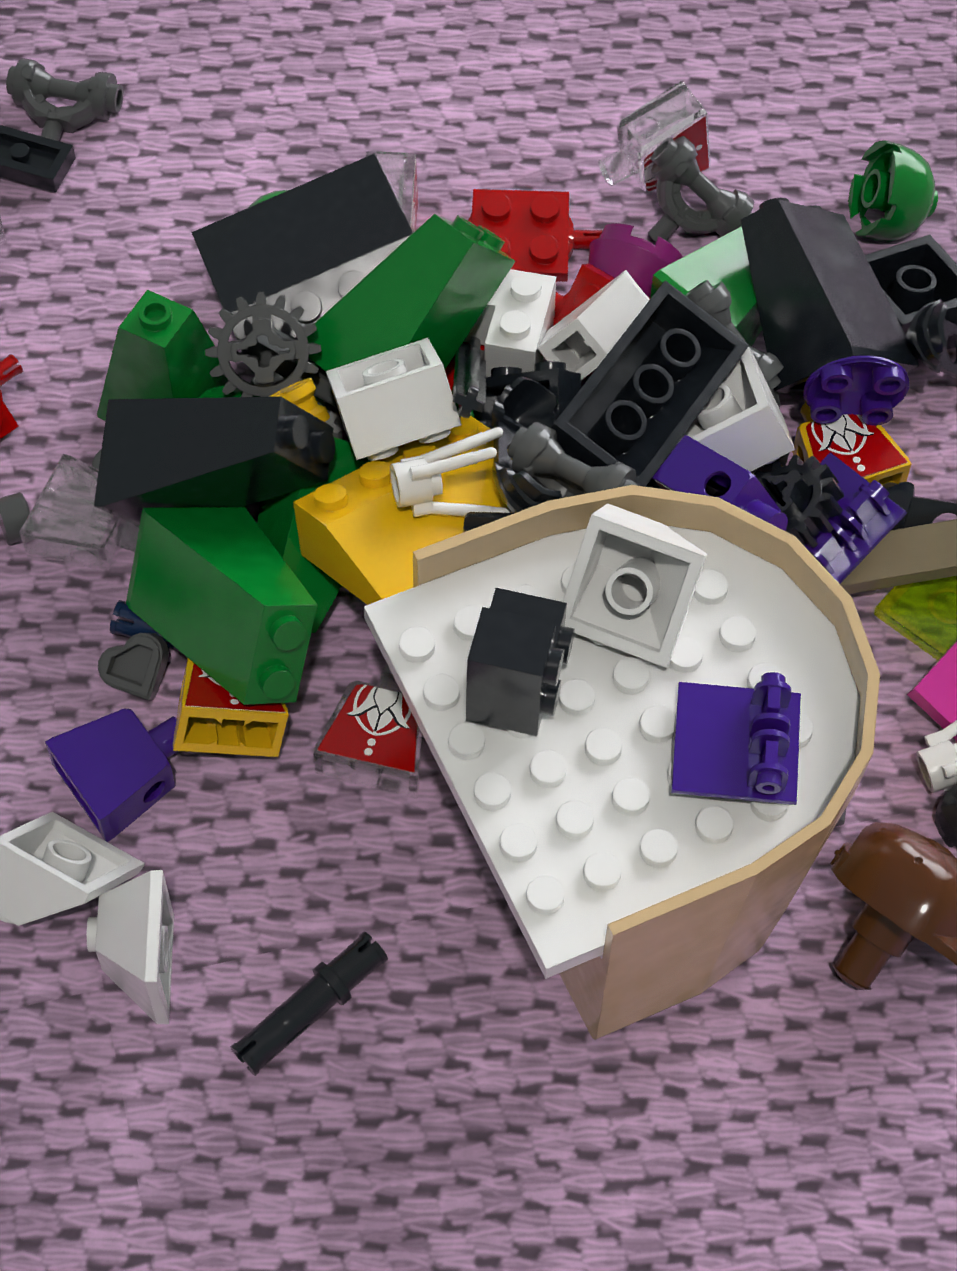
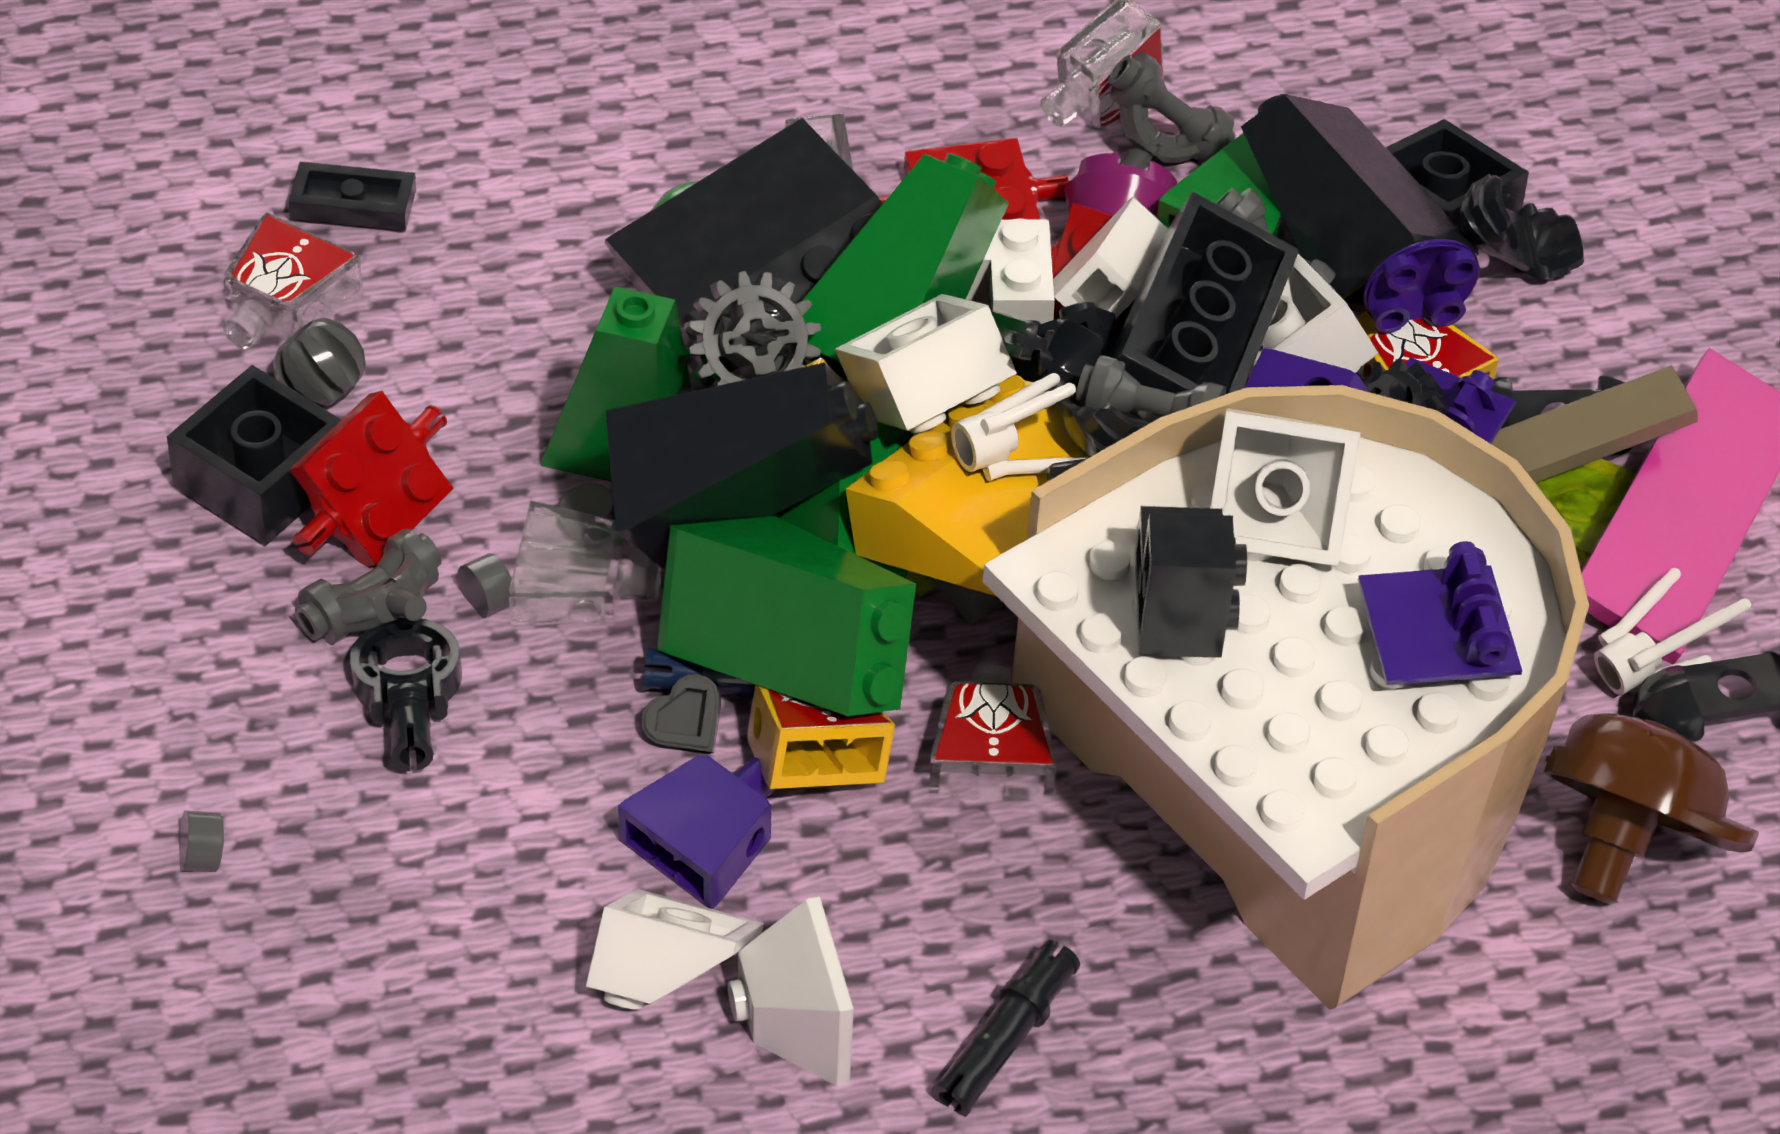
camera: 15 degrees left, 10 degrees down
(94, 97) = (343, 116): dark grey piece -> none
(894, 183) = (1387, 73): green cylinder -> none

